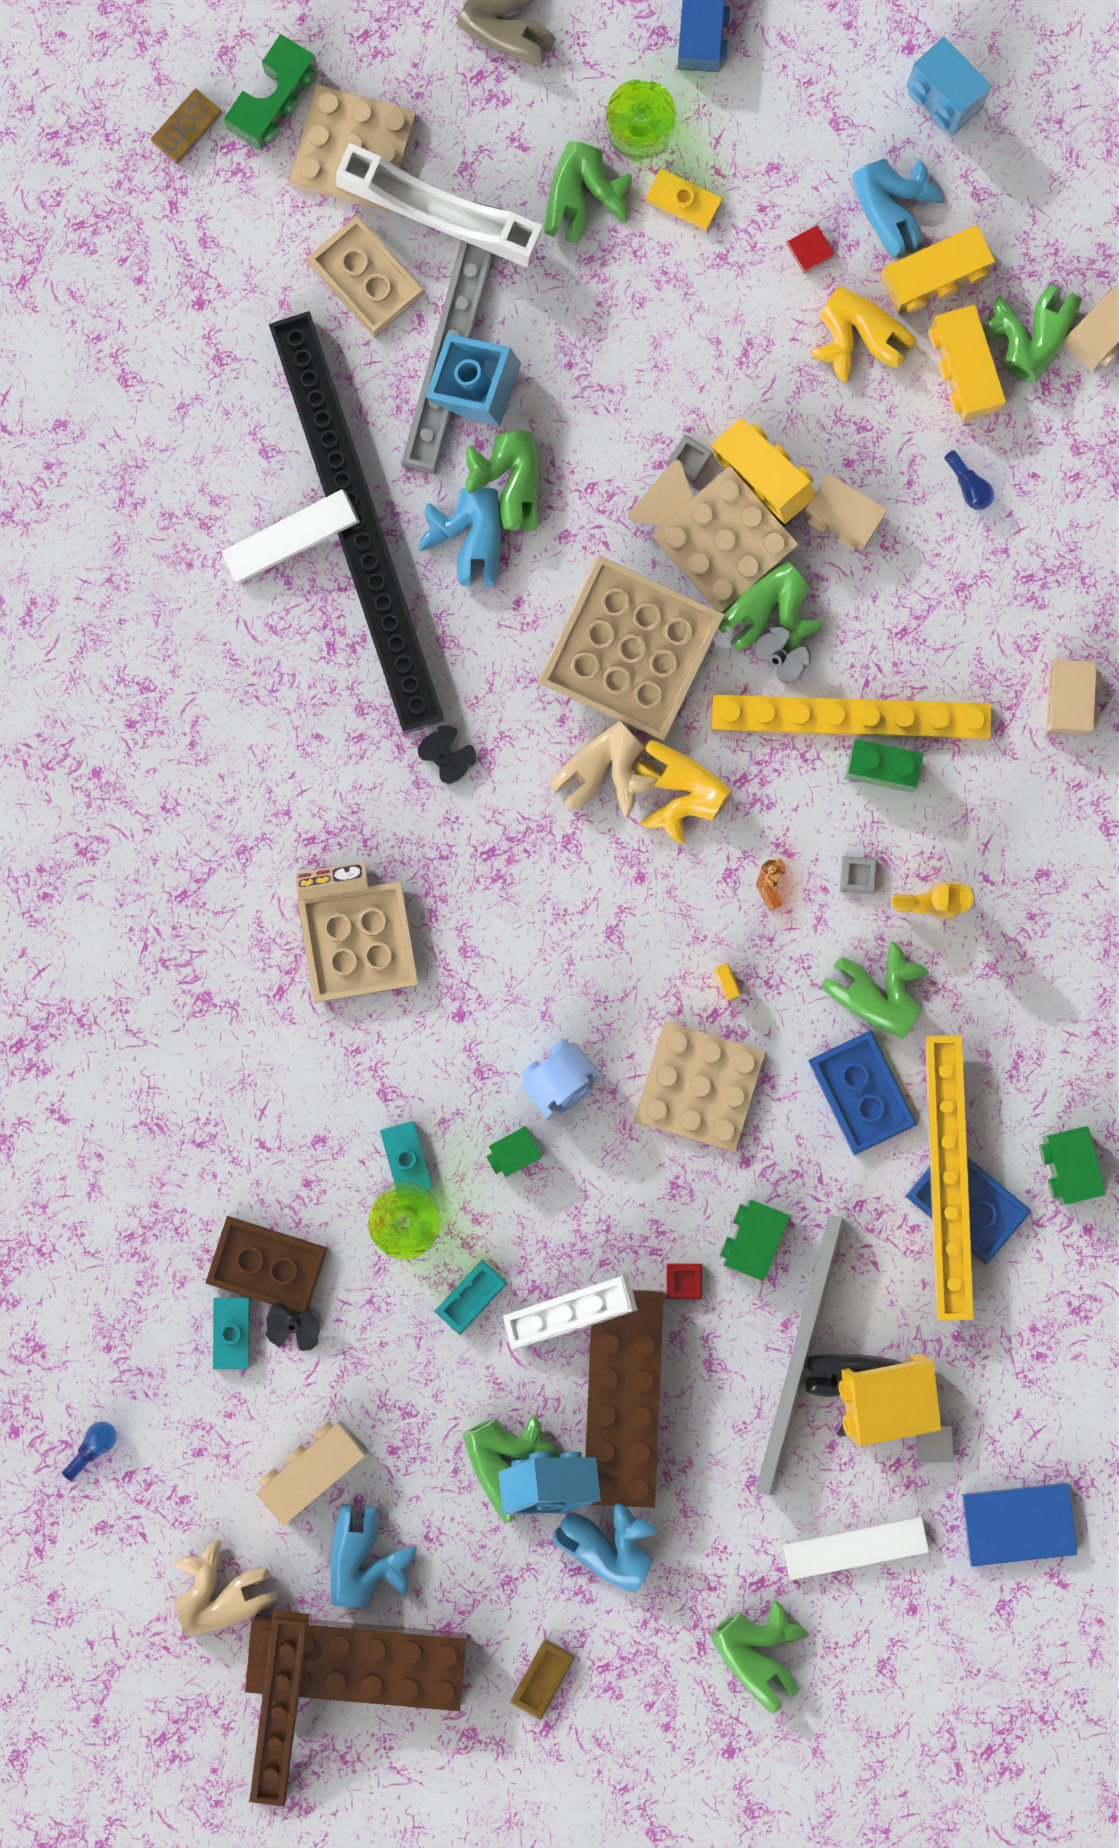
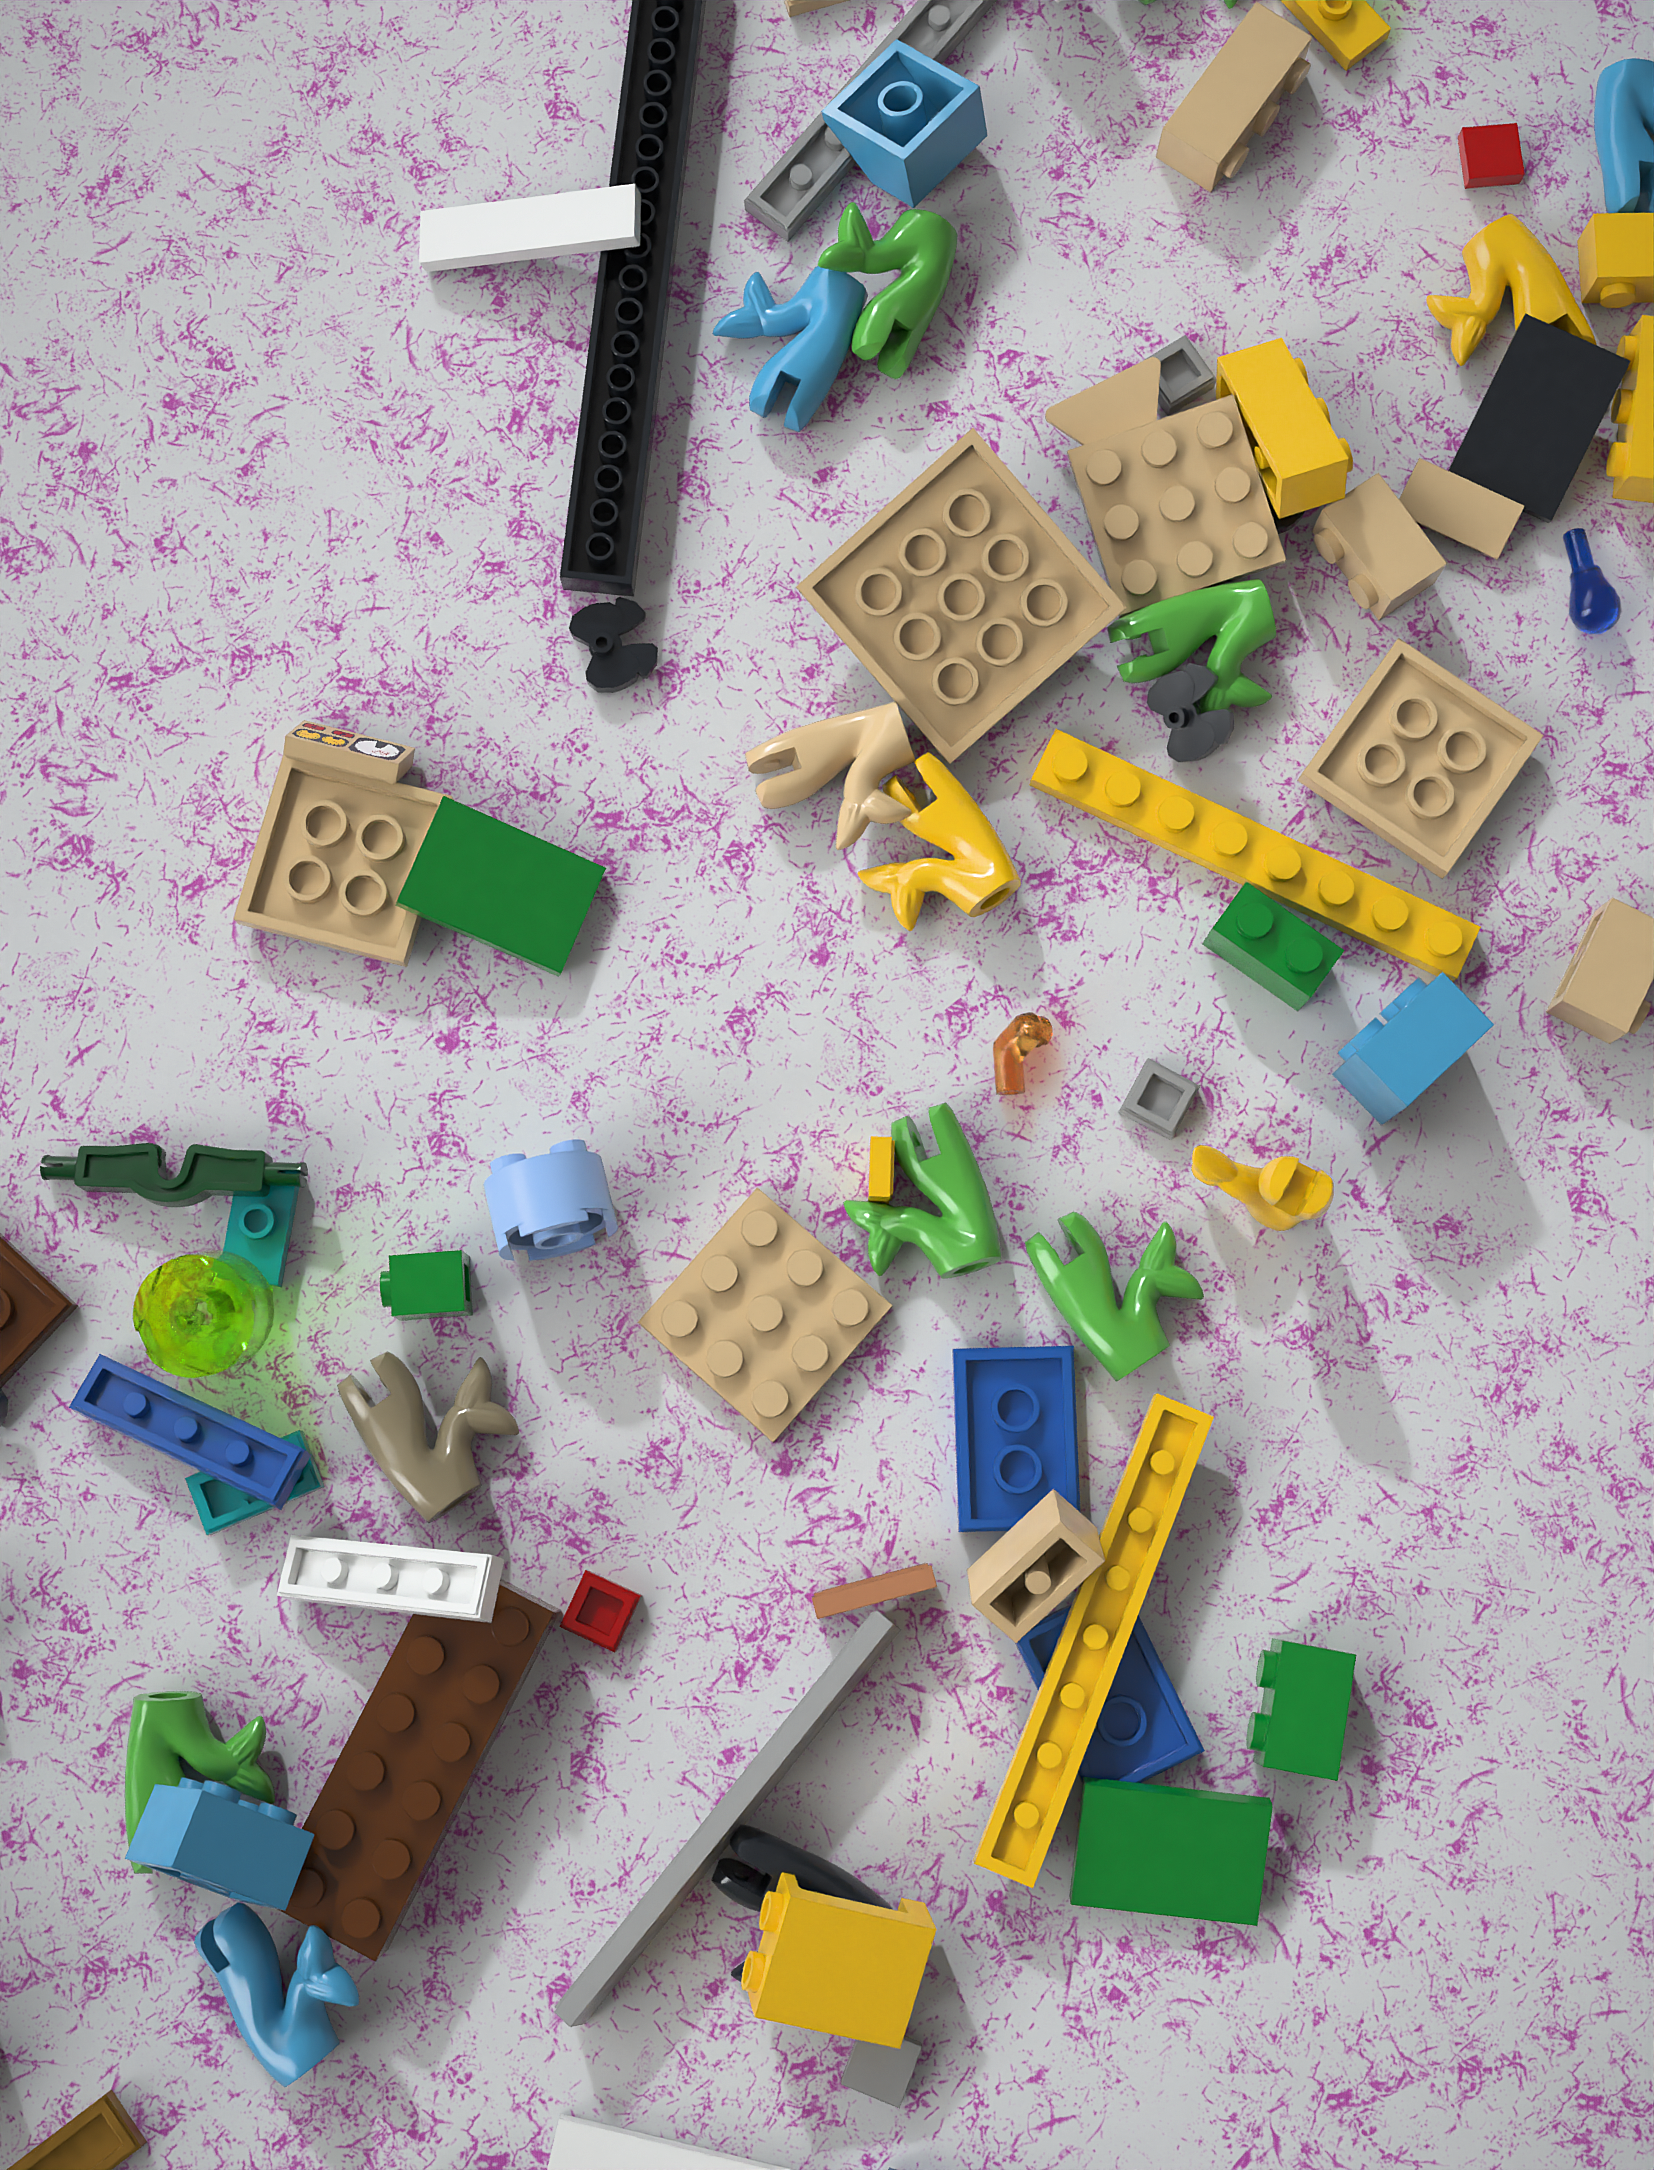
camera: 25 degrees right, 5 degrees down
(365, 1147) = (203, 1174): none -> dark green piece
(424, 1285) = (190, 1431): none -> blue tile
(451, 919) = (500, 886): none -> green tile
(536, 1239) = (397, 1436): none -> dark tan piece
(653, 281) = (1235, 98): none -> tan brick
(754, 1239) = (739, 1595): green brick -> none
(769, 971) = (967, 1231): none -> bright green piece
(823, 1205) = (873, 1590): none -> nougat tile
(880, 469) = (1460, 508): none -> tan tile
(901, 399) = (1539, 416): none -> black tile
(902, 1155) = (1034, 1566): none -> tan brick
(919, 622) = (1420, 758): none -> tan plate
(982, 790) = (1422, 1038): none -> dark azure brick
(1036, 1269) = (1170, 1851): none -> green tile

